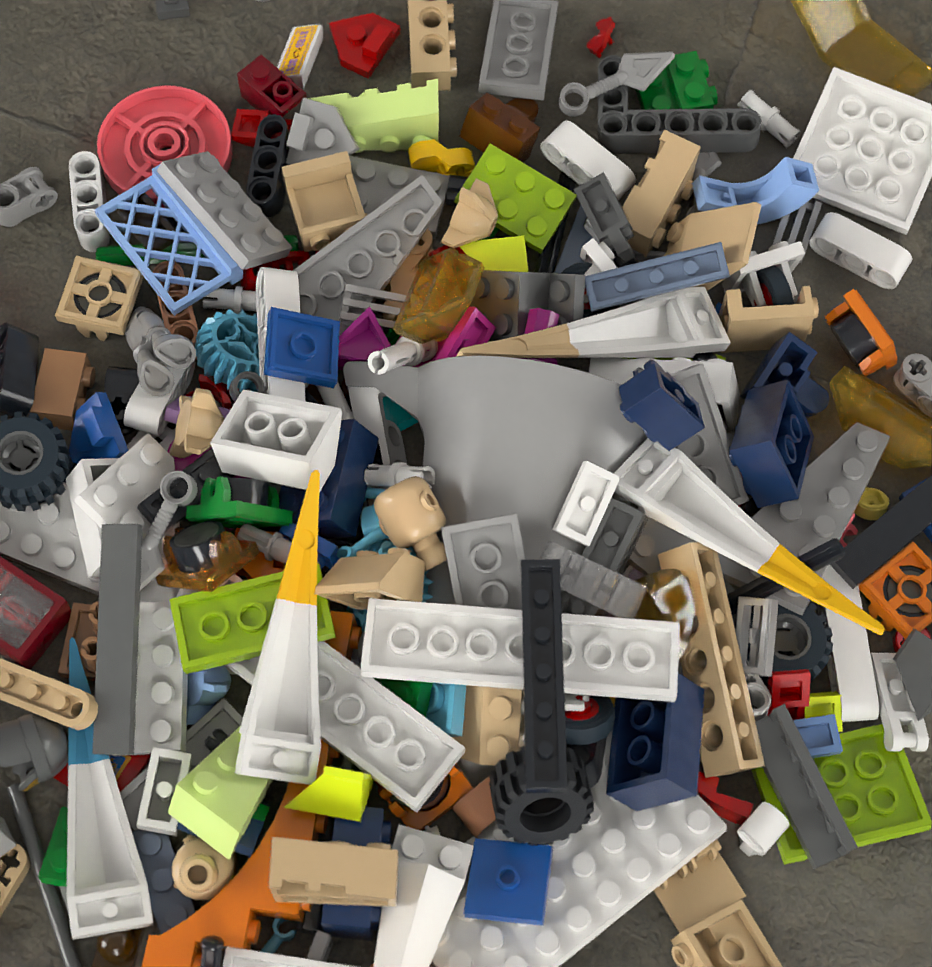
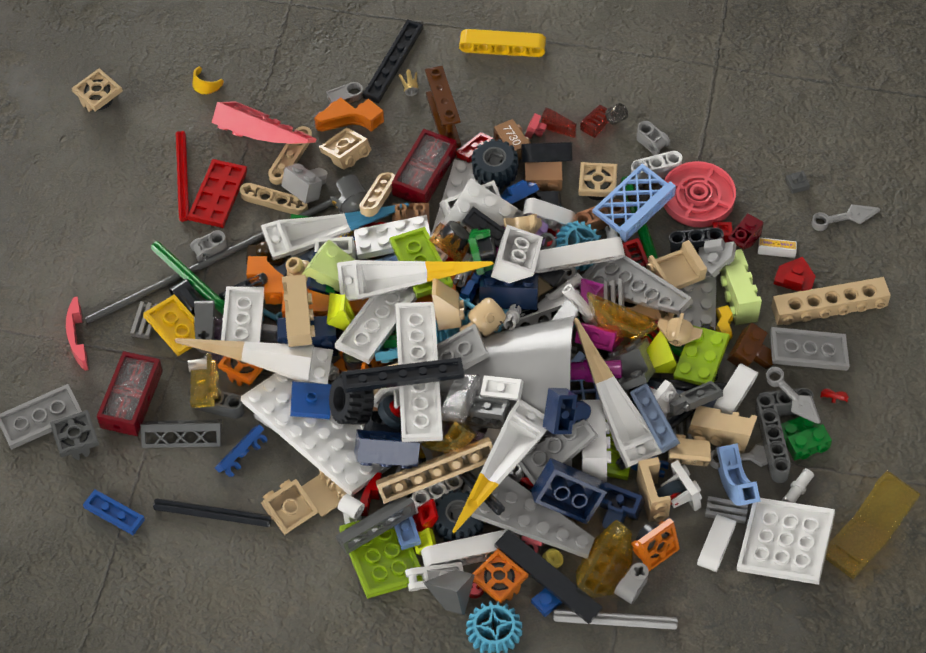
camera: 85 degrees right, 10 degrees down
(117, 639) = (405, 213): dark grey tile -> none
(151, 558) = (446, 213): light grey piece -> none
(153, 344) = (564, 204): light grey piece -> none
(224, 209) = (657, 220): light grey plate -> none
(302, 347) = (575, 261): blue tile -> none
(760, 635) = (451, 487): light grey tile -> none

